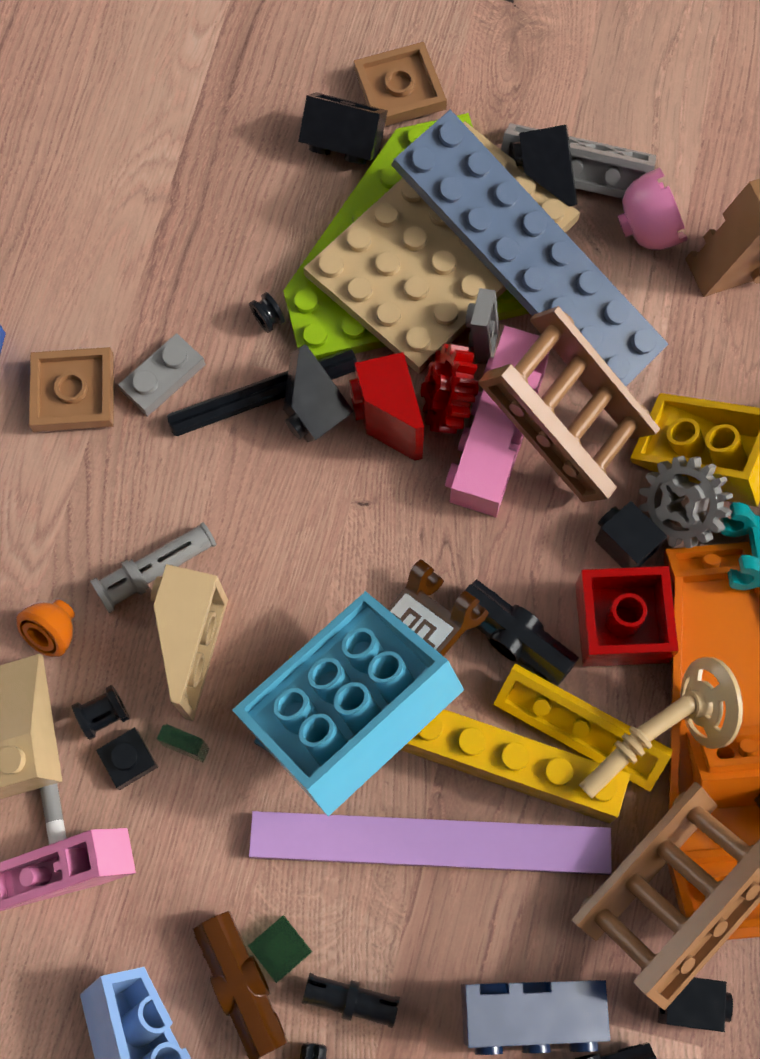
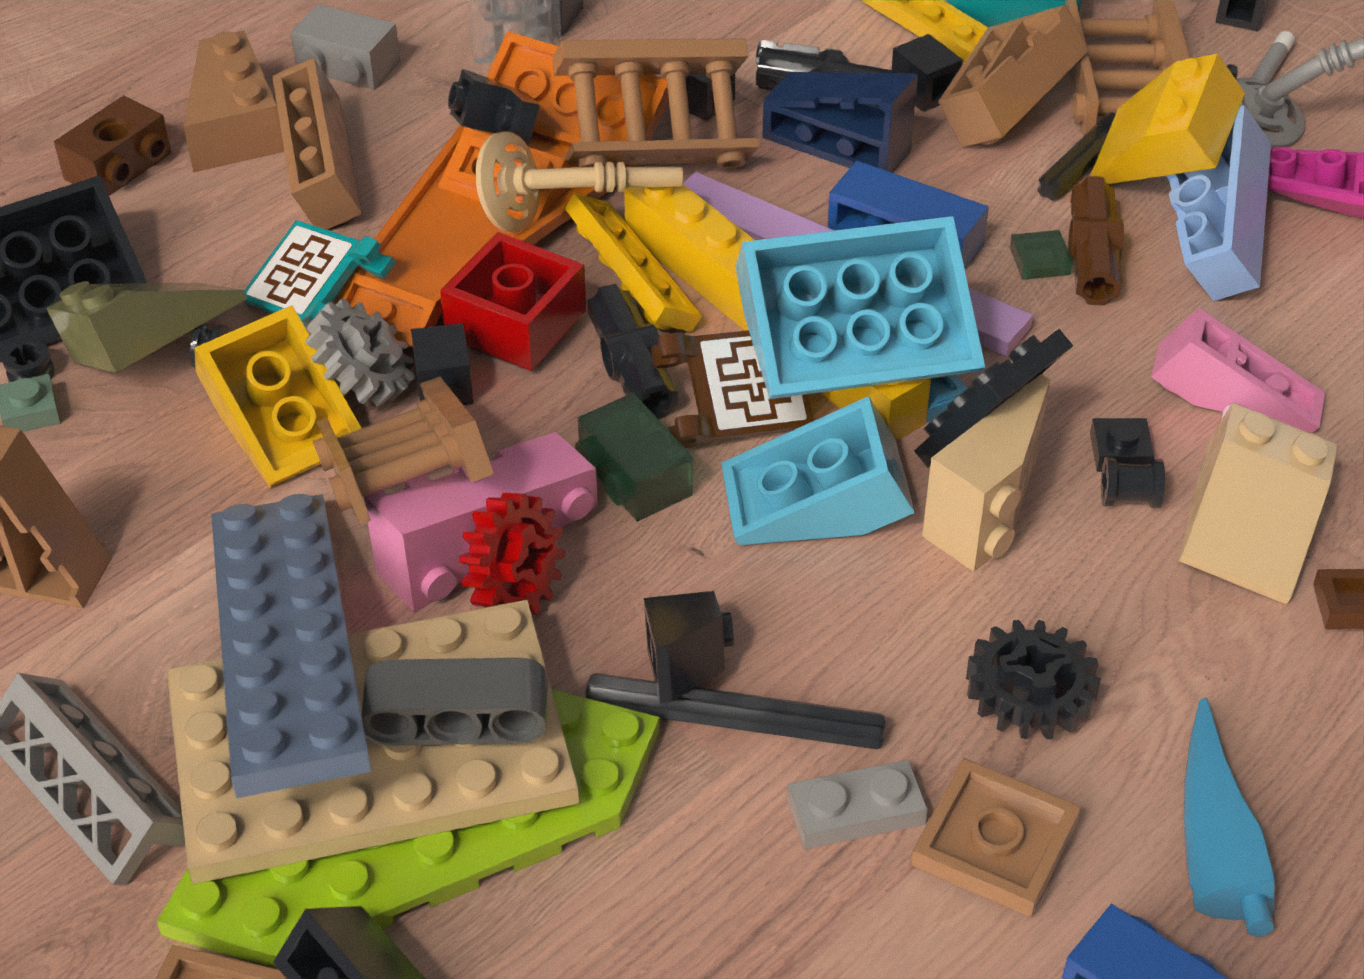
camera: 150 degrees left, 25 degrees down
(47, 627) = (1157, 581): orange brick -> none
(94, 484) = (1027, 679): none -> black gear
(130, 578) = (1021, 587): light grey pin -> none
(183, 742) = (1060, 421): clear green tile -> none
(207, 682) = (991, 390): none -> black plate
(267, 312) = (662, 793): black bush -> none
(309, 583) = (819, 480): none -> medium azure slope
(351, 1000) = (996, 194): black pin -> none
(388, 404) = (594, 580): red slope -> none
(393, 253) = (455, 701): none -> dark grey beam
(404, 917) = (879, 197): none -> blue brick
(444, 534) = (635, 457): none -> clear green brick
(483, 325) = (410, 588): light grey plate -> none
(548, 161) = (136, 742): black slope -> none
(651, 213) = (78, 634): bright pink cylinder -> none

